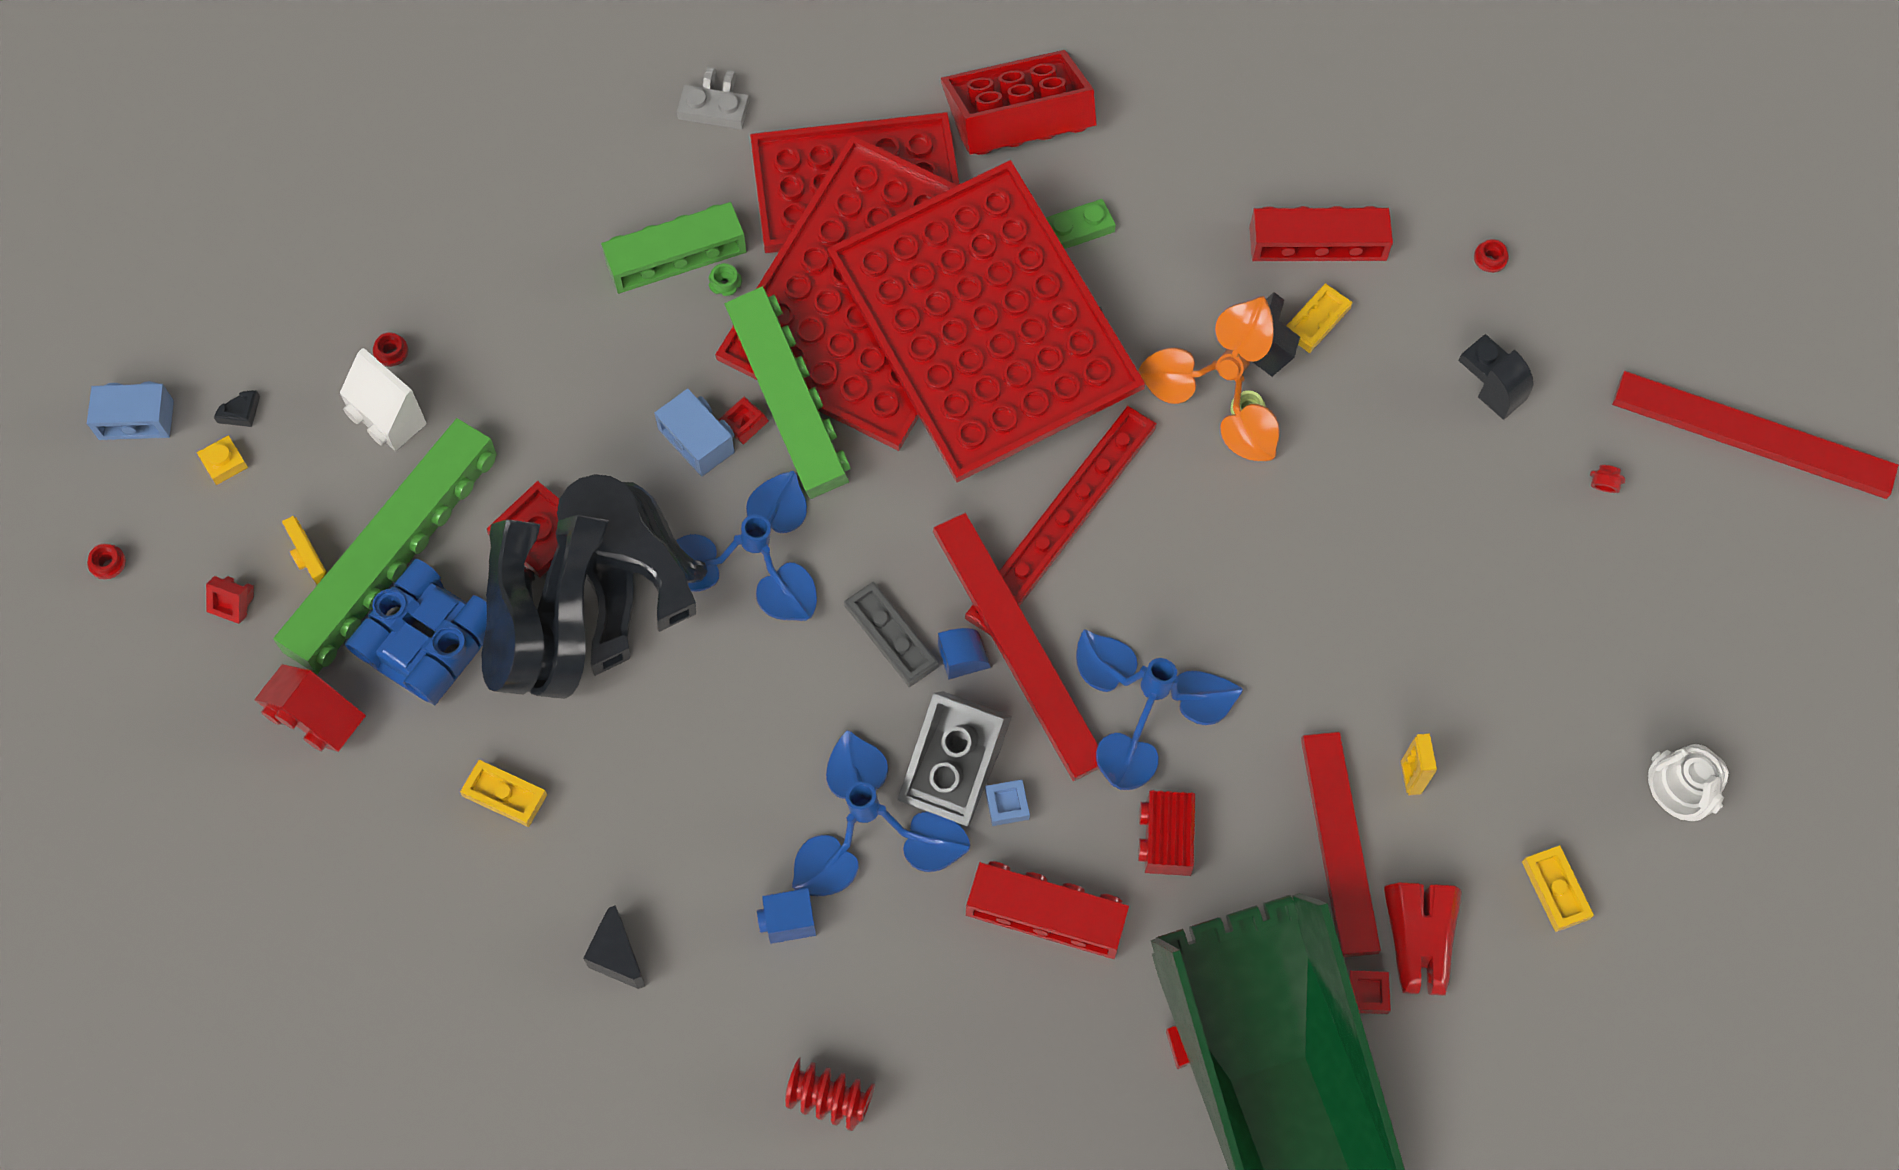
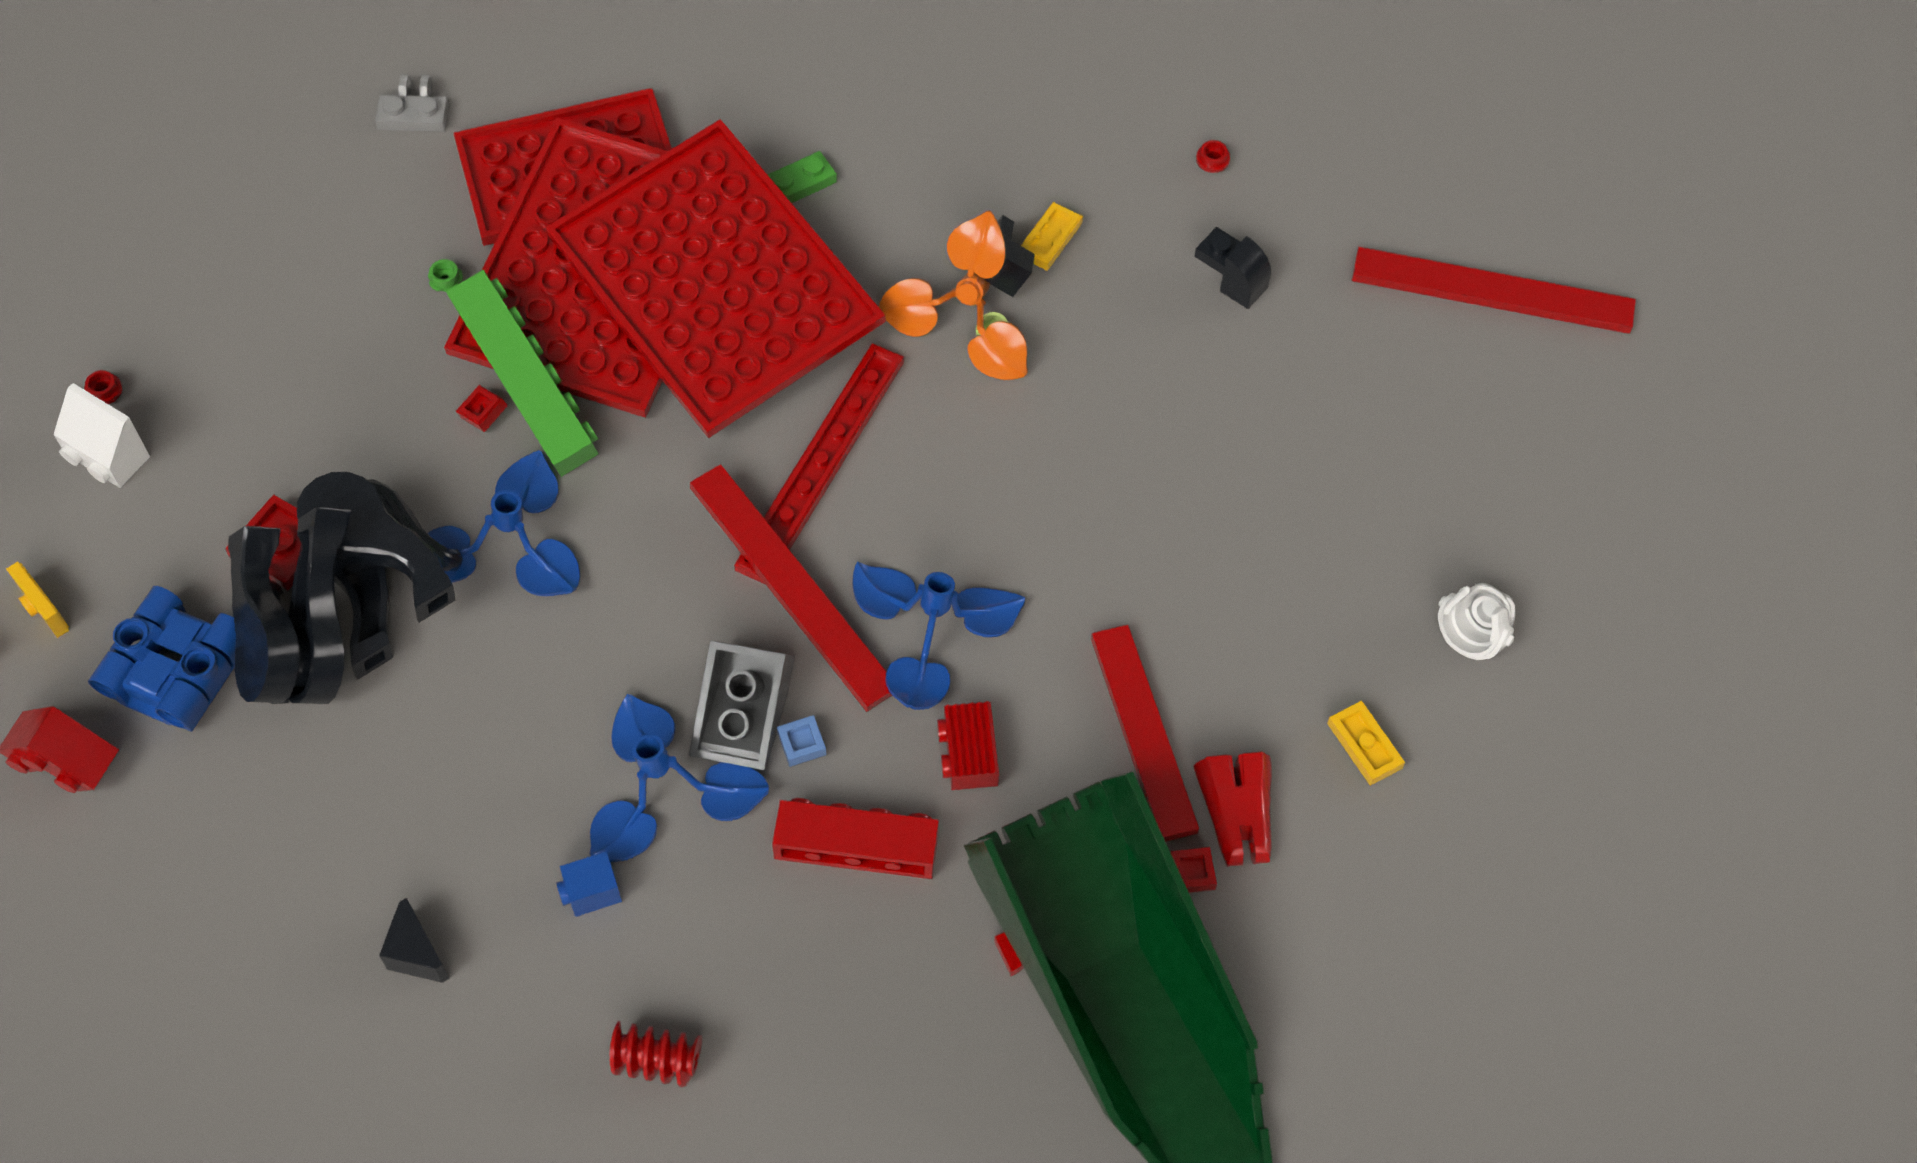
camera: 10 degrees left, 5 degrees down
(386, 546) = (120, 579): bright green brick -> none
(503, 793) = (275, 807): yellow plate -> none
(674, 247) = (388, 251): bright green brick -> none
(695, 432) = (433, 425): medium blue brick -> none
(891, 634) = (661, 595): dark grey tile -> none
(962, 652) = (735, 601): blue brick -> none
(1020, 102) = (724, 70): red slope -> none
(1320, 234) = (1041, 157): red brick -> none
(1418, 764) = (1210, 641): yellow plate -> none
(1607, 479) = (1357, 349): red plate -> none

